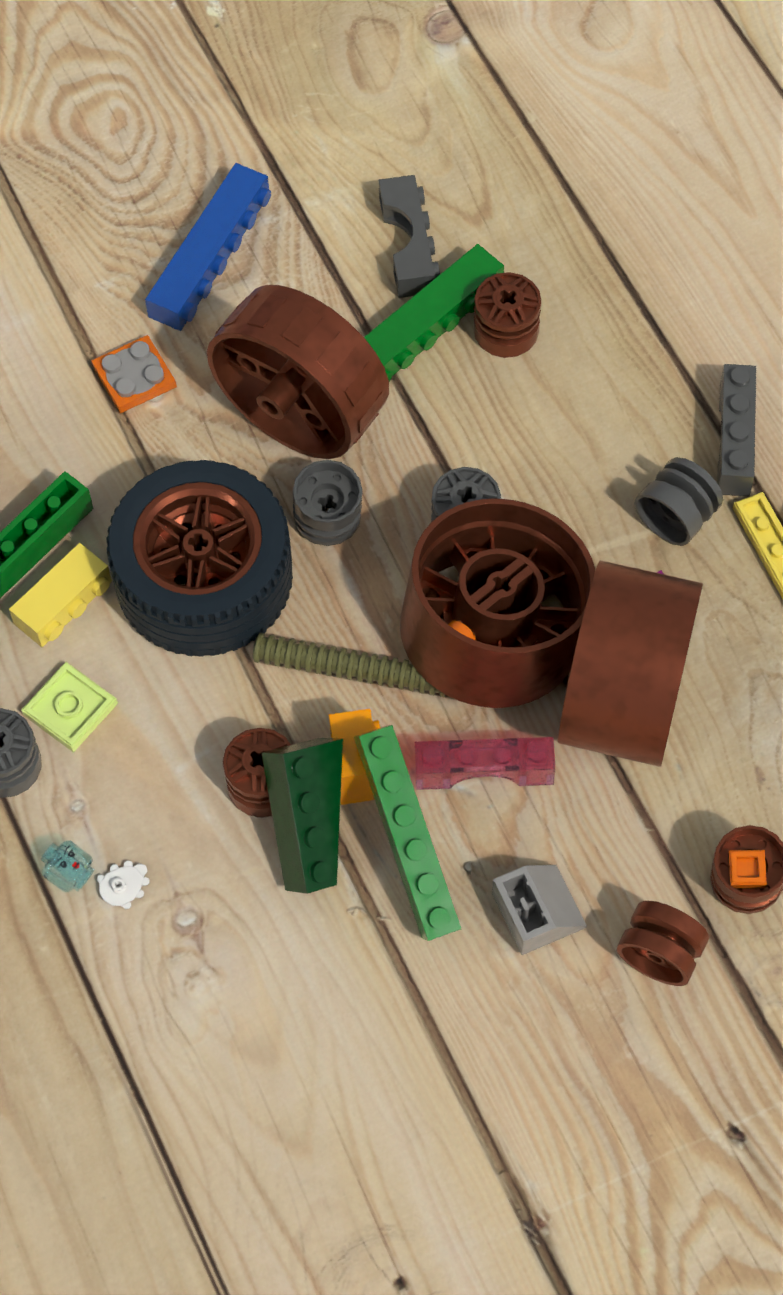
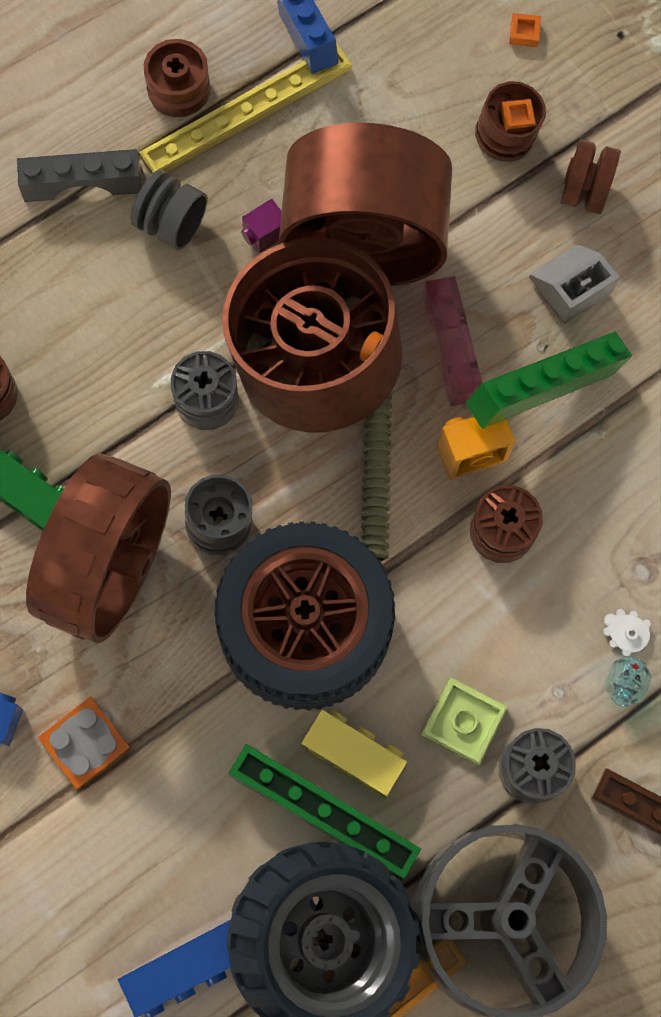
camera: 105 degrees left, 10 degrees up
(306, 811) = (544, 468): dark green wedge -> none

